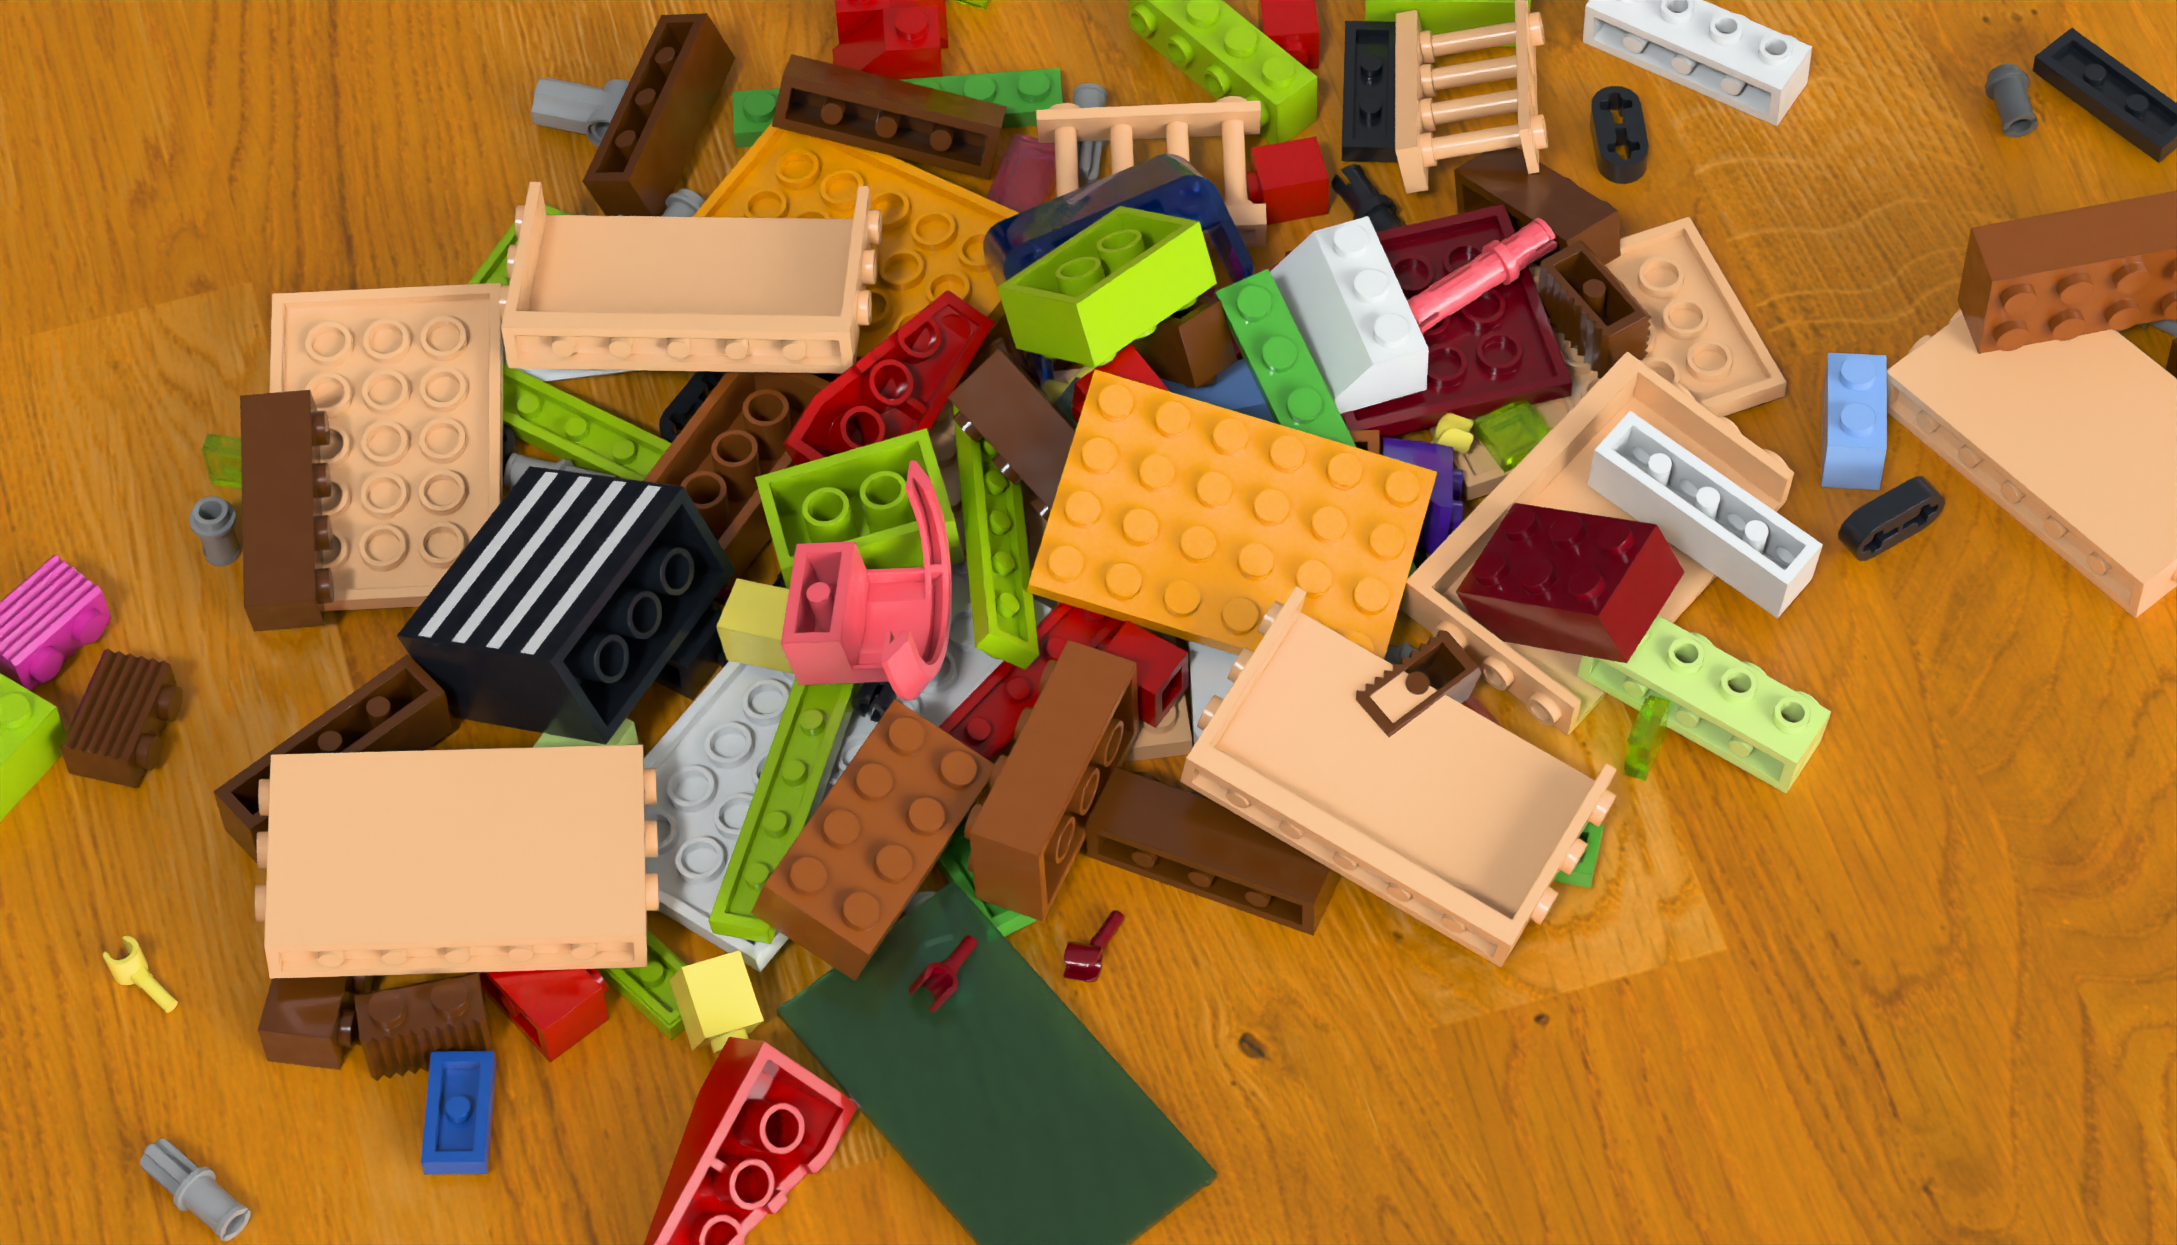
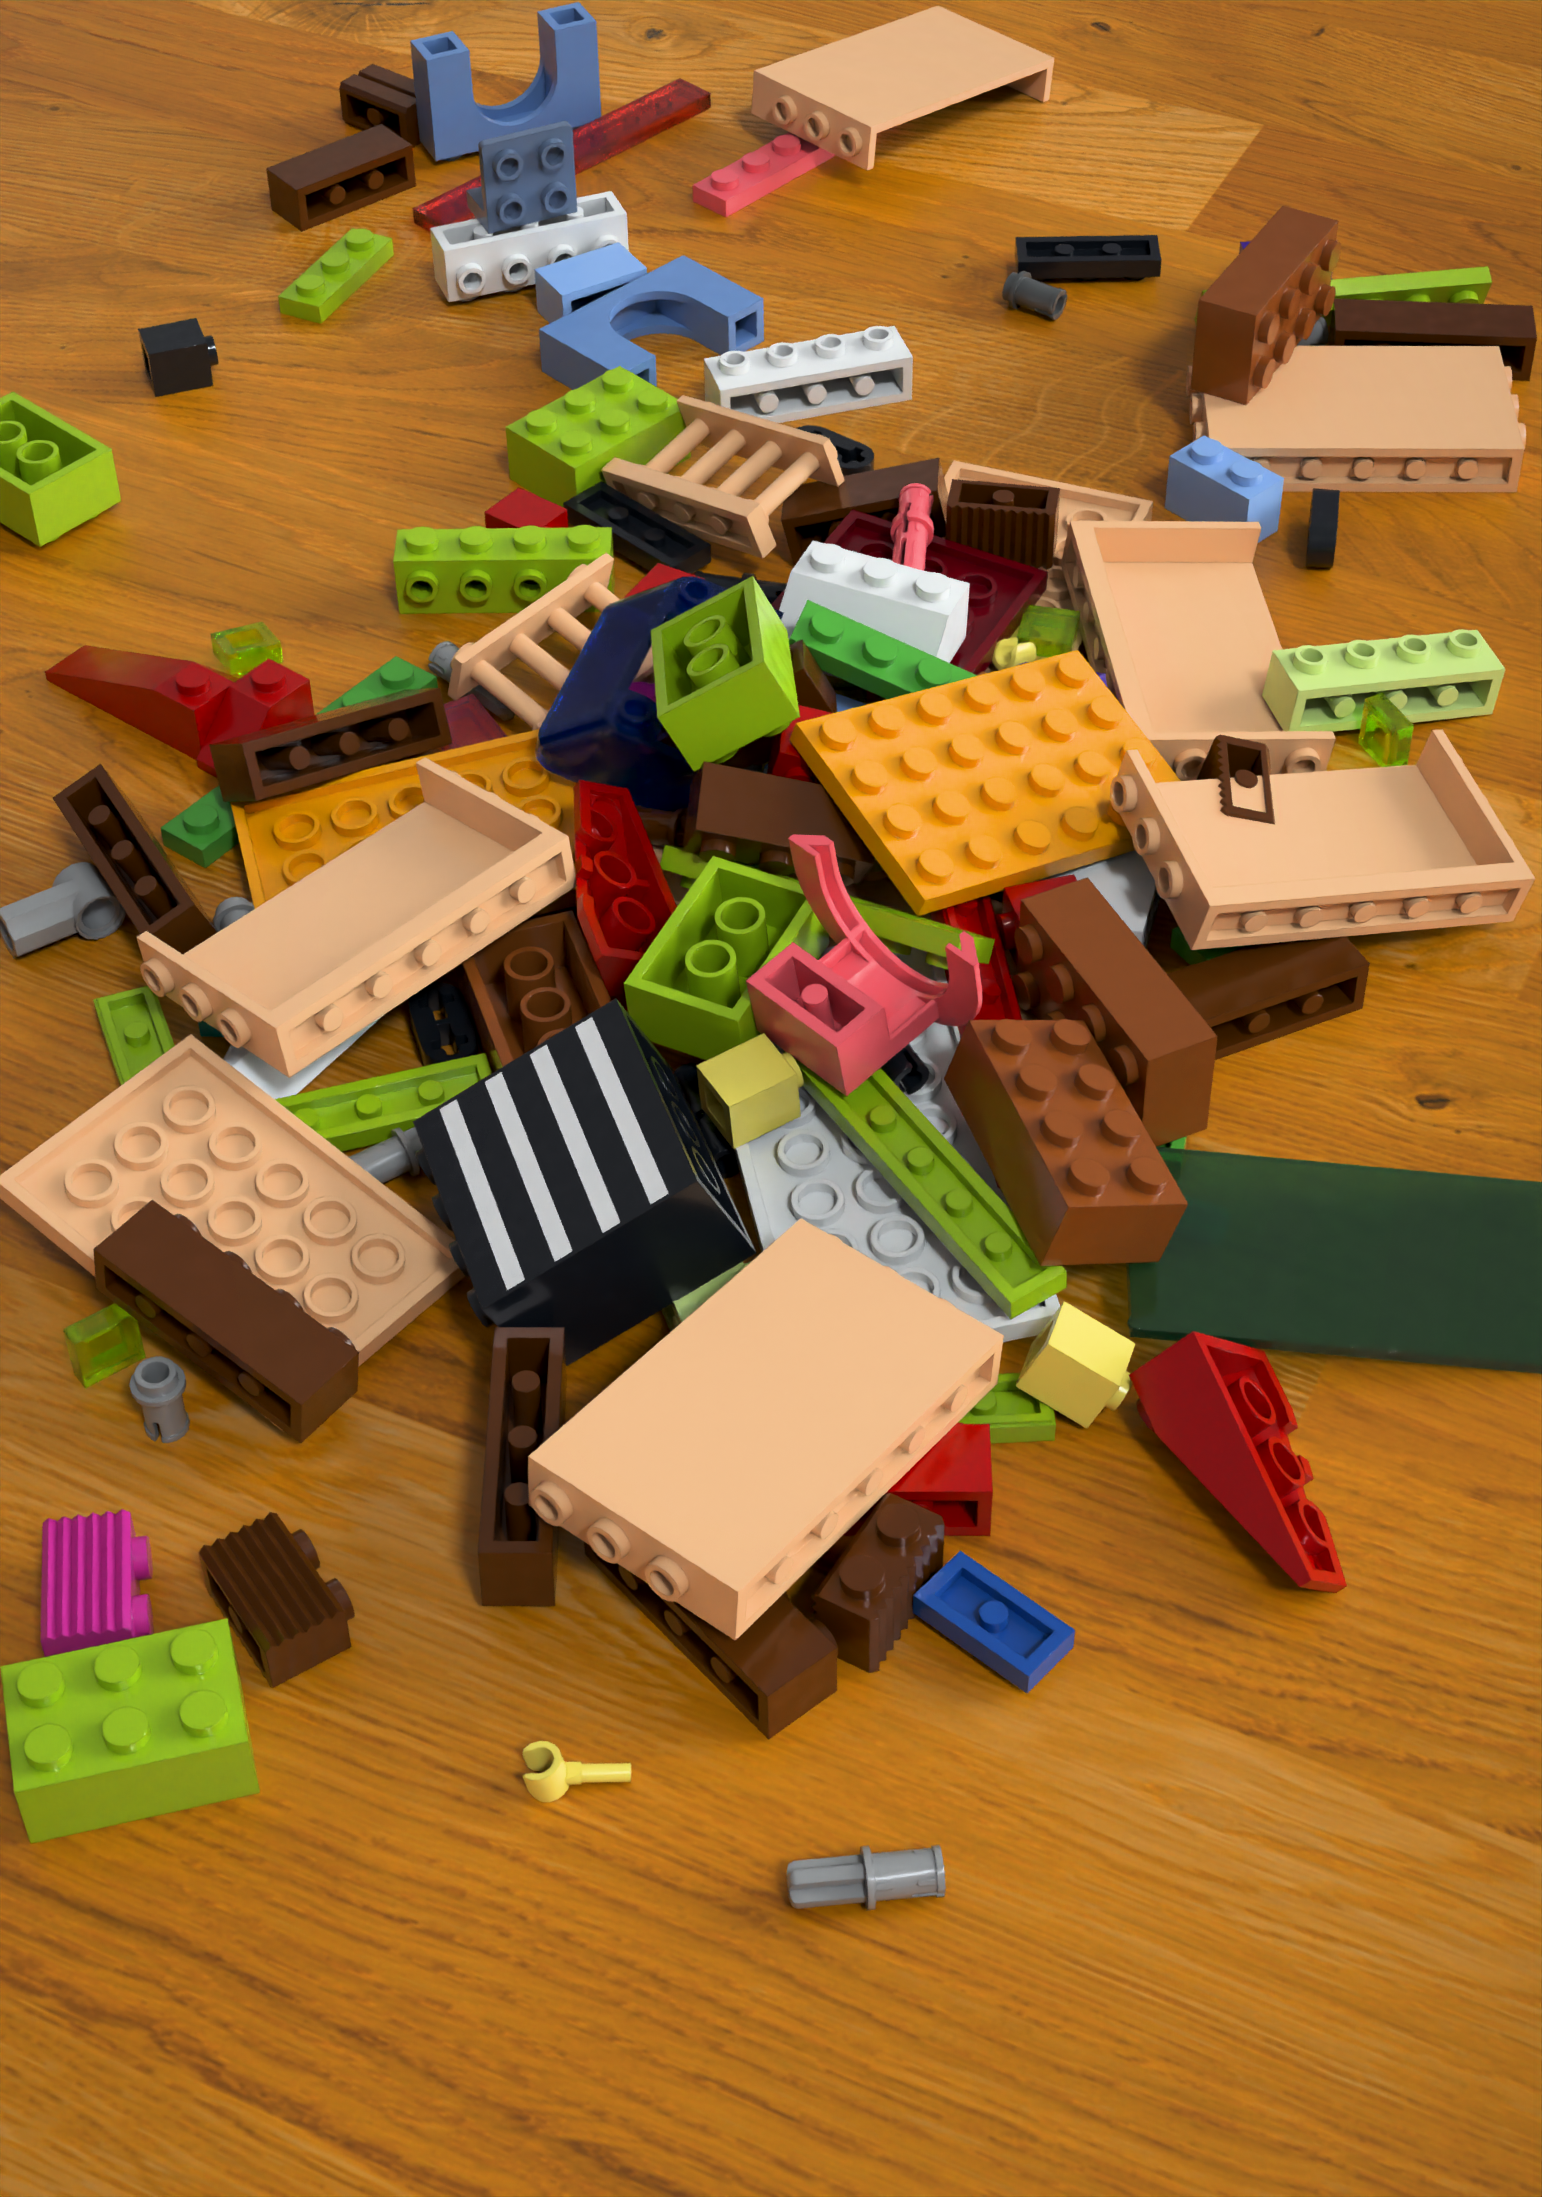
camera: 50 degrees left, 10 degrees down
(941, 977) = (1224, 1206): dark red hand -> none
(1086, 960) = (1255, 1131): dark red hand -> none
(1571, 581) = (1247, 653): dark red brick -> none
(1704, 514) = (1245, 578): white brick -> none

